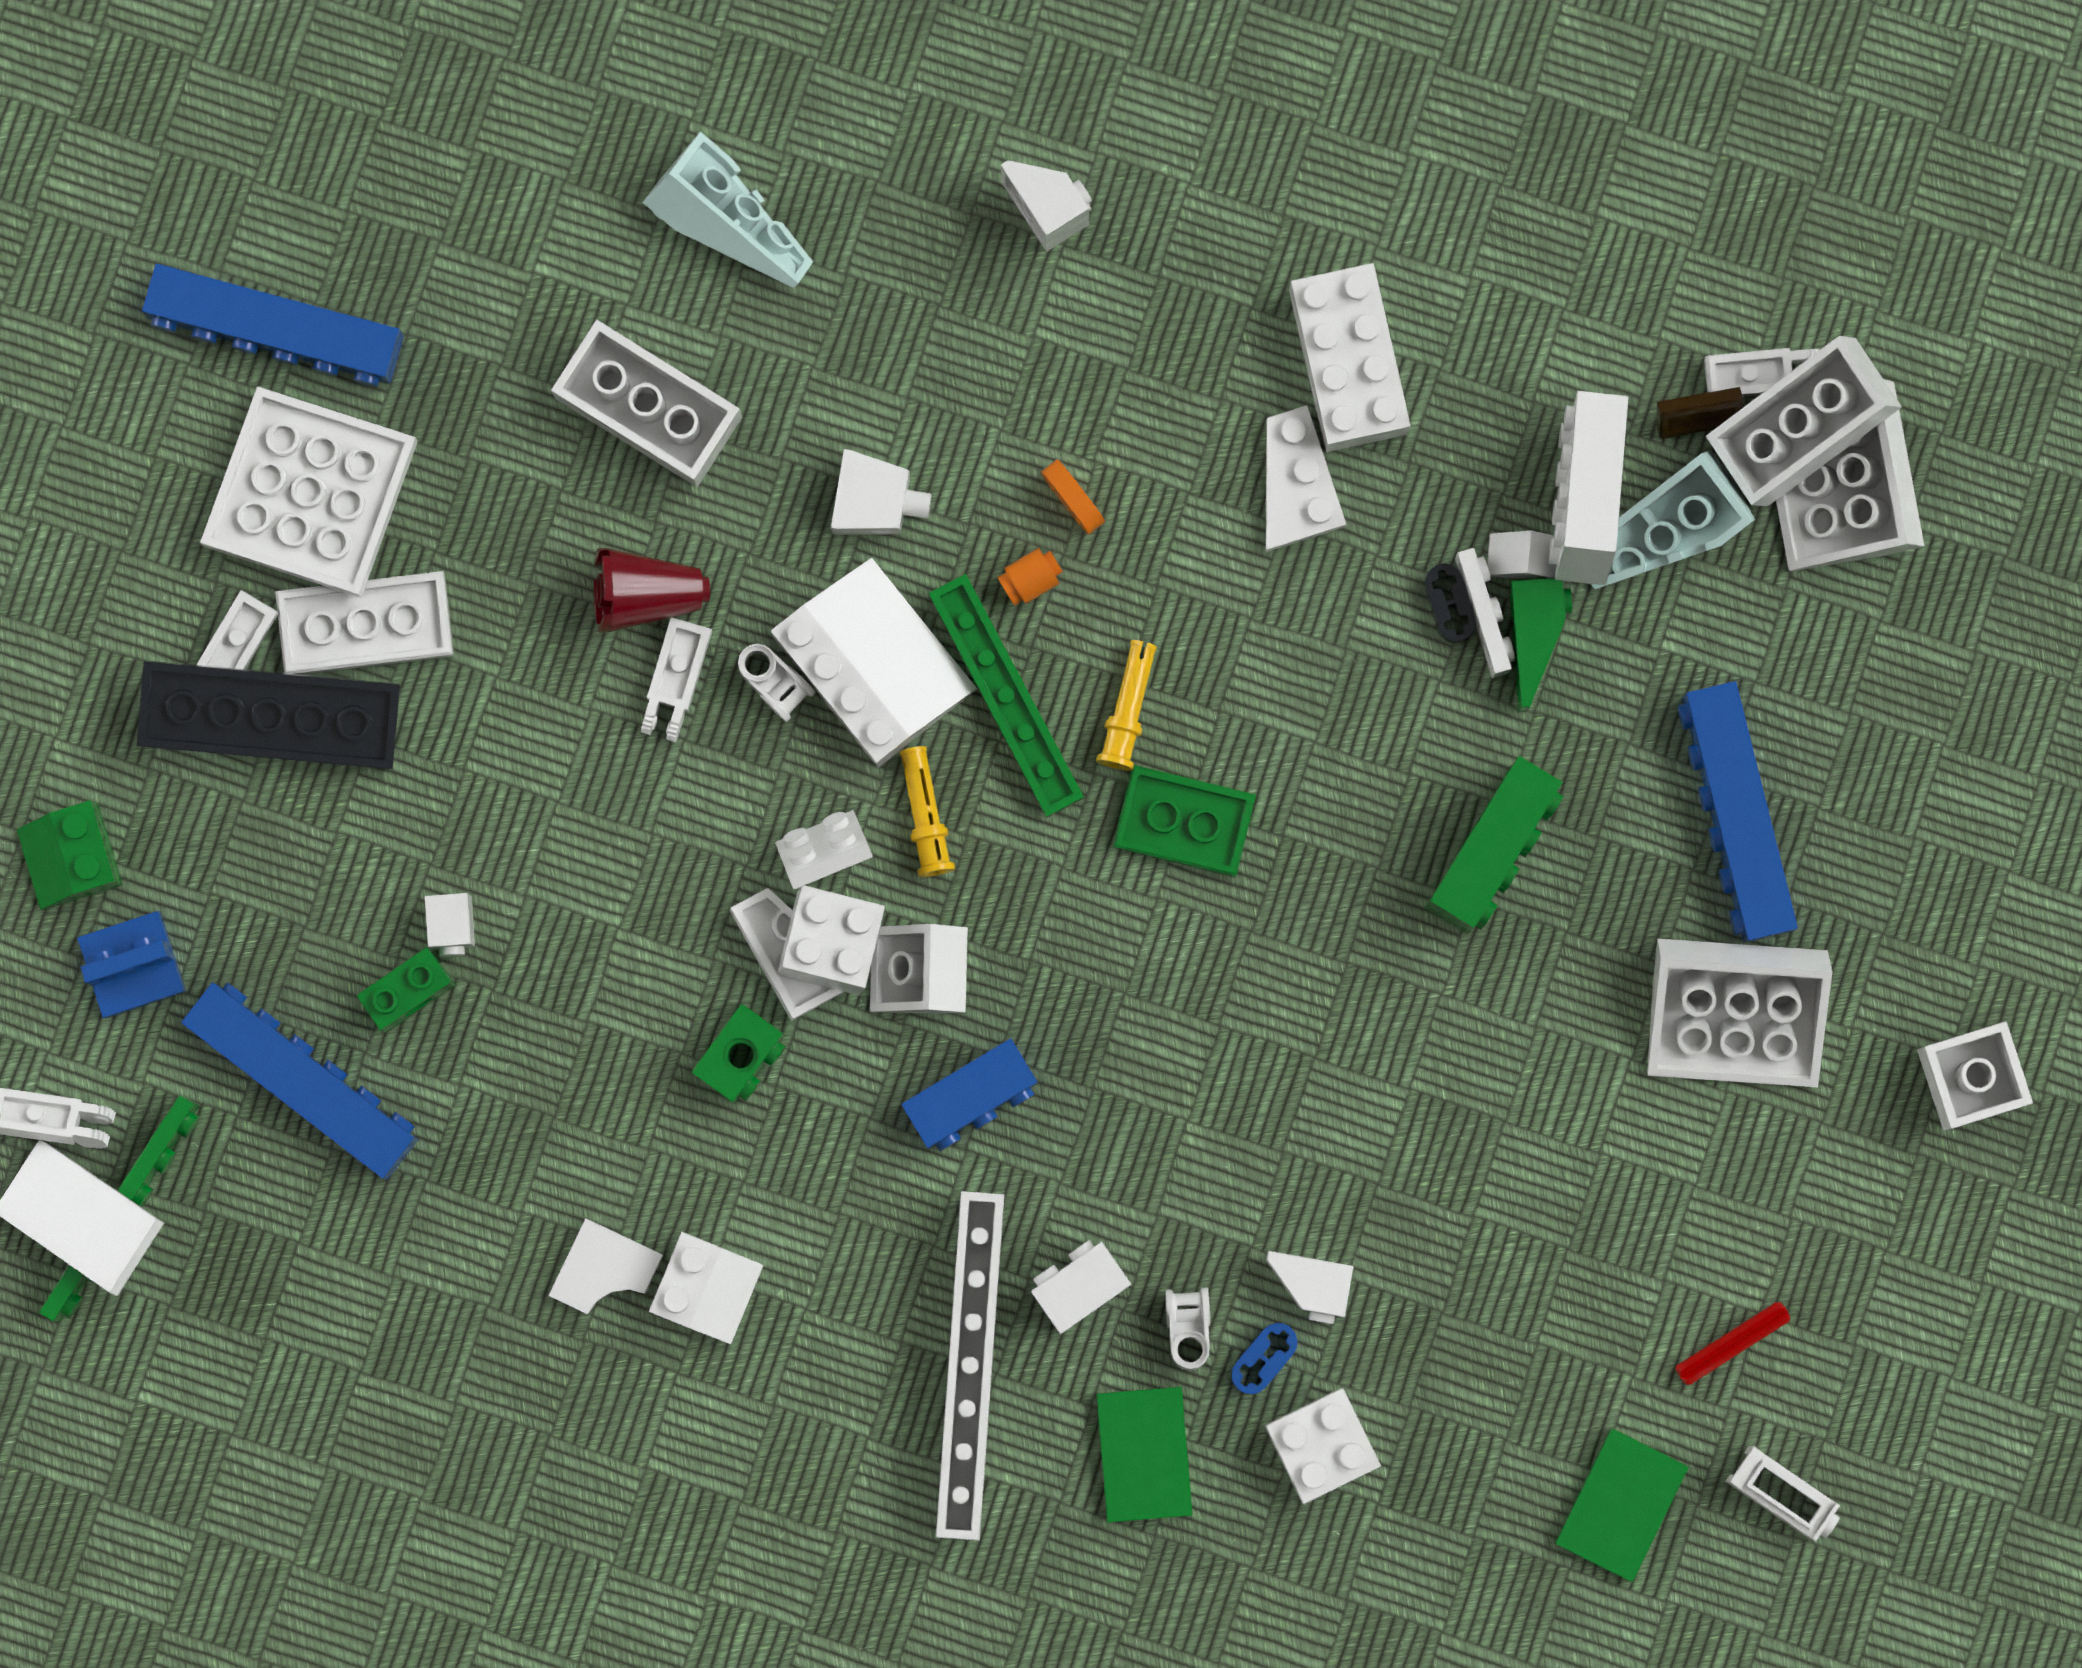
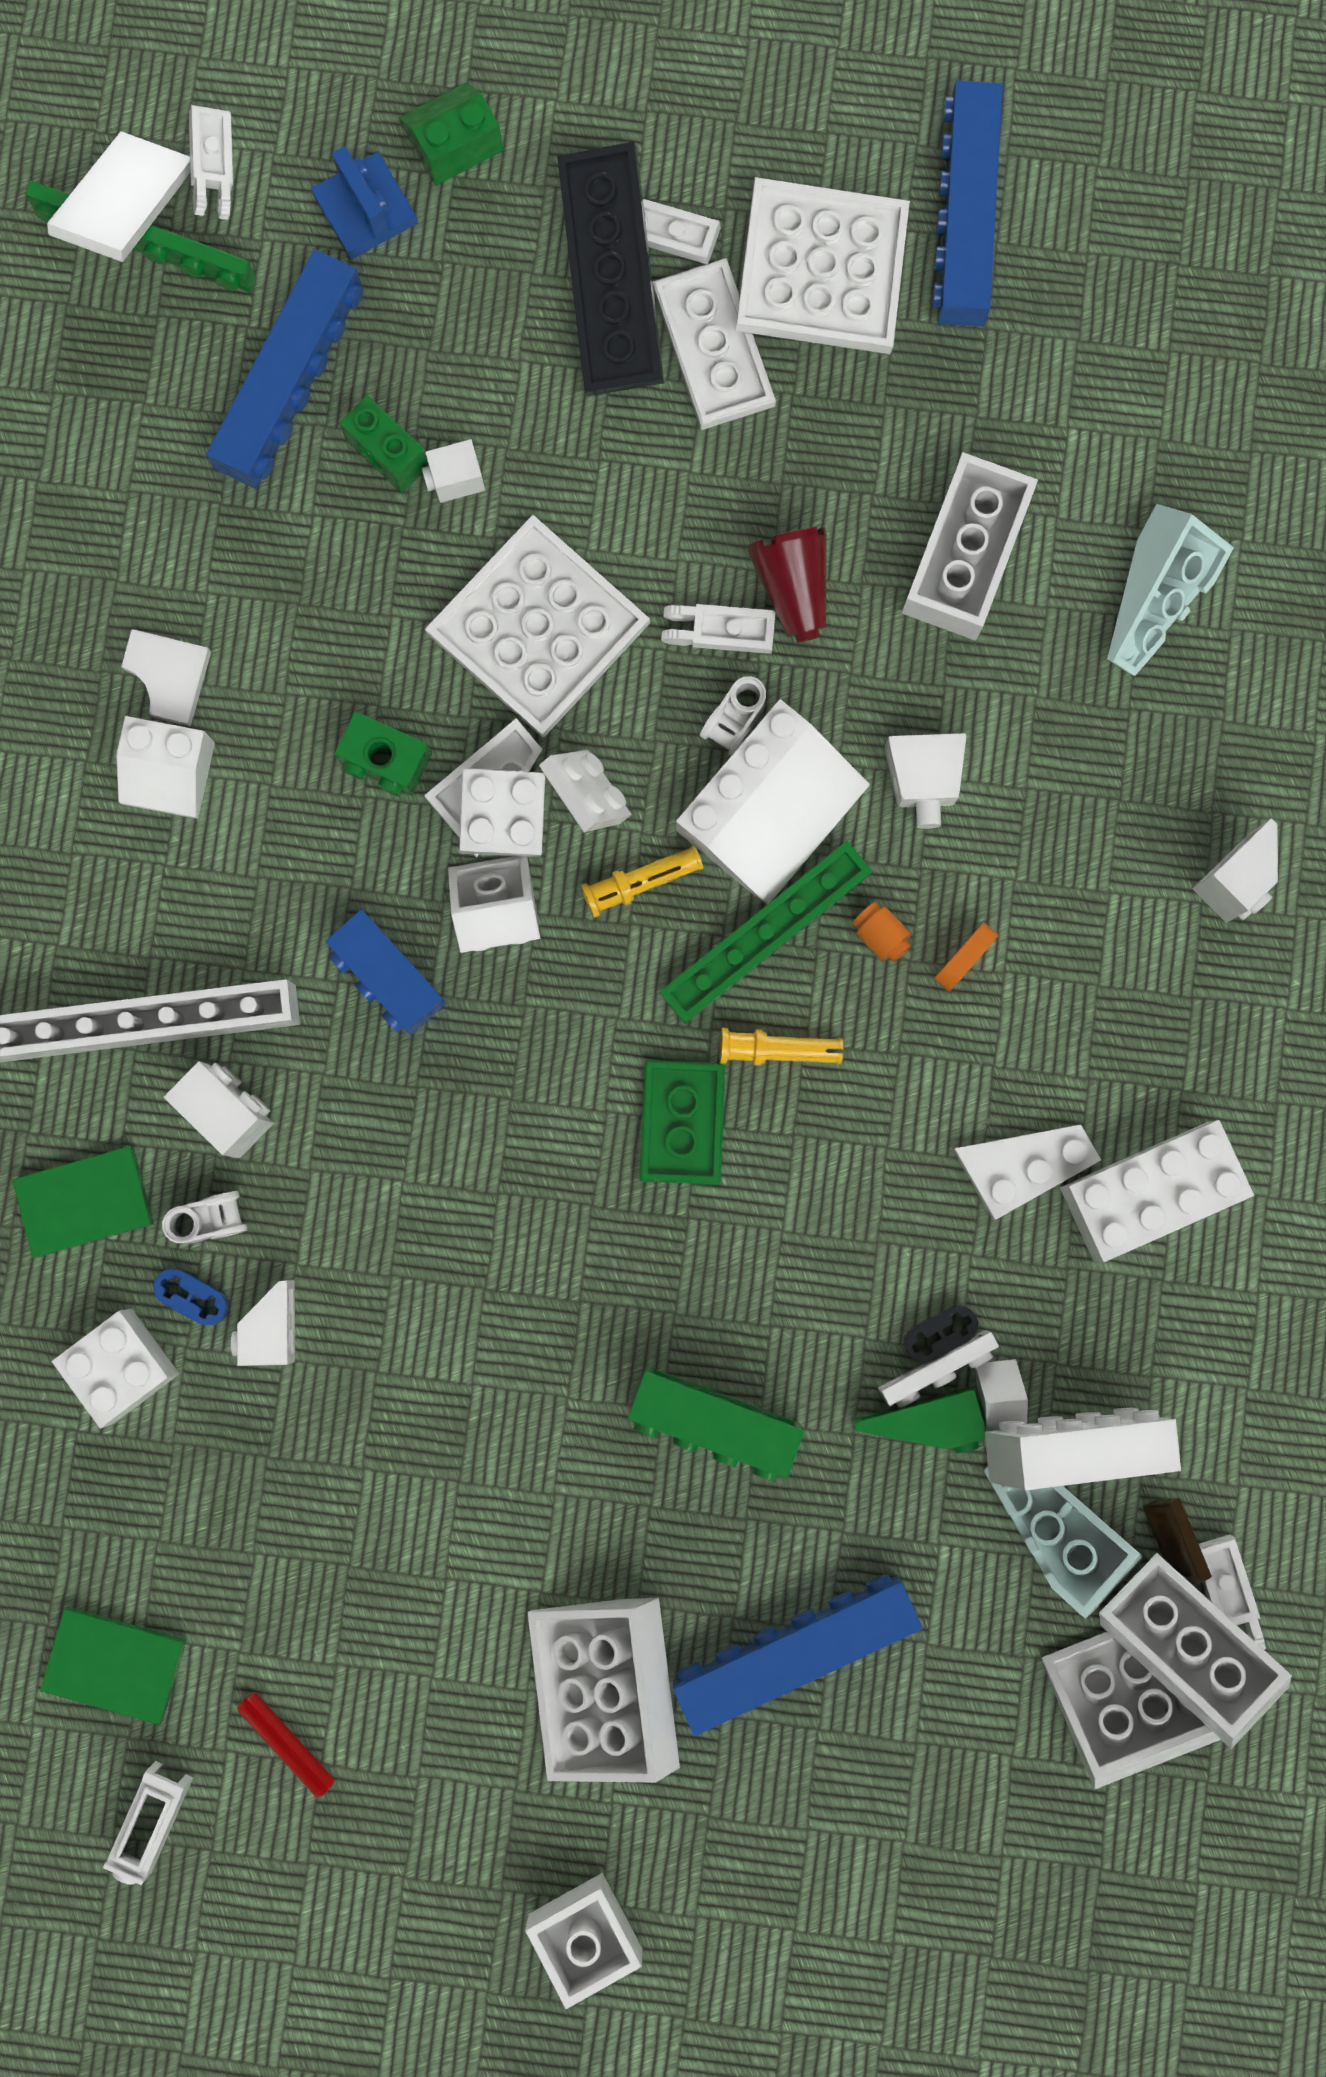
camera: 80 degrees right, 0 degrees up
(634, 867) = (537, 626): none -> white plate

